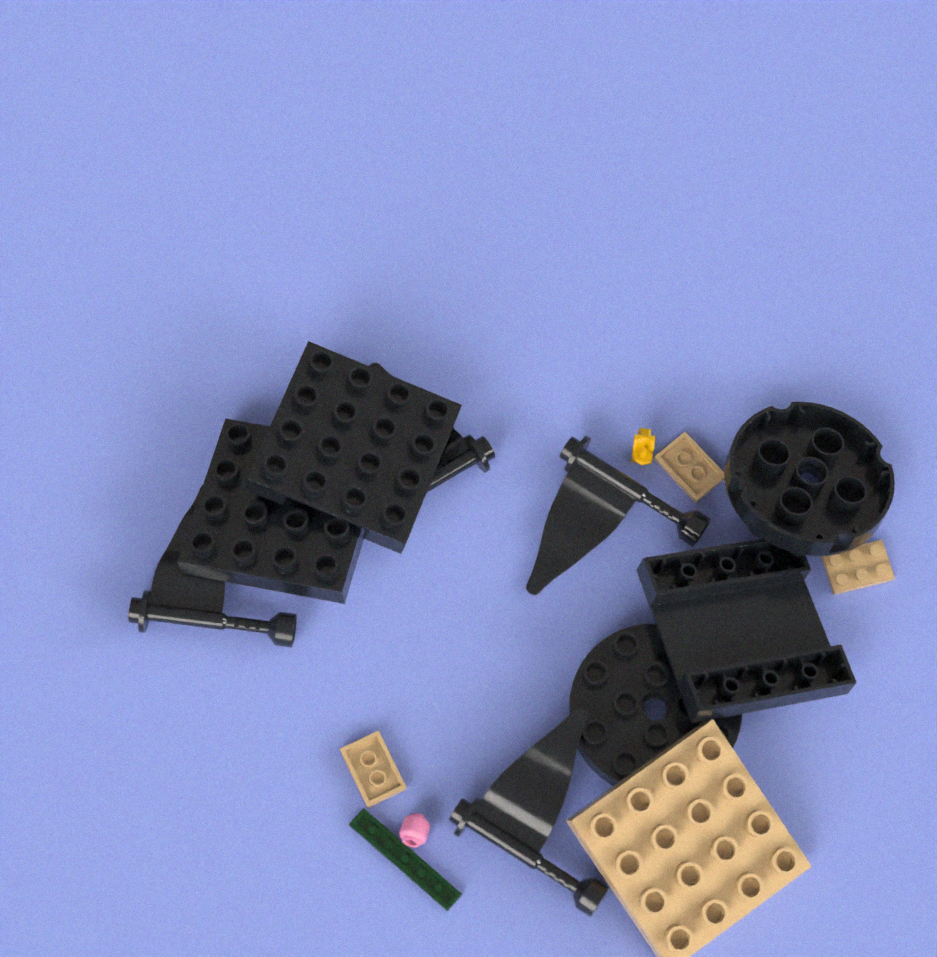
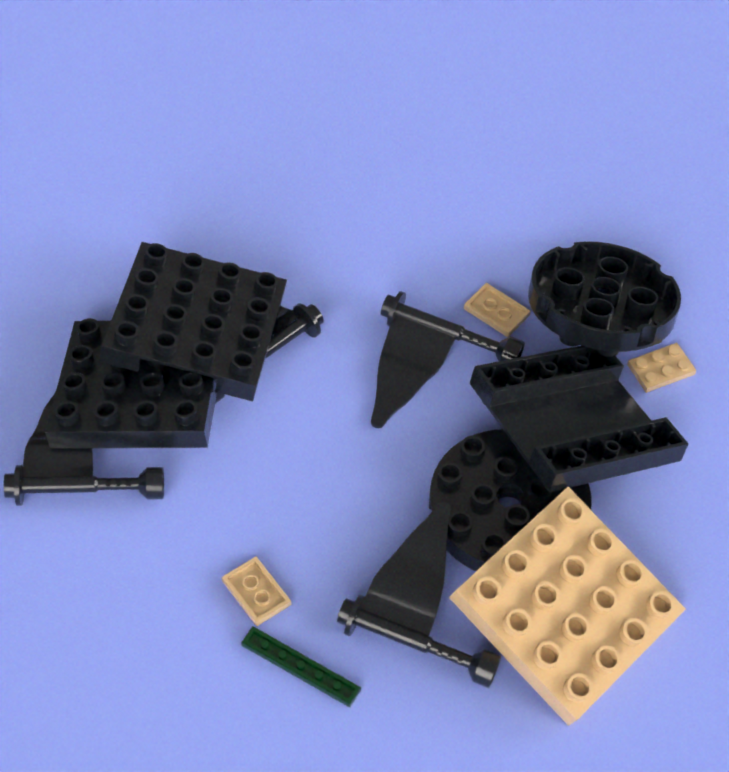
camera: 10 degrees left, 15 degrees down
(414, 830) = (305, 637): bright pink head -> none
(643, 447) = (453, 297): yellow hips -> none

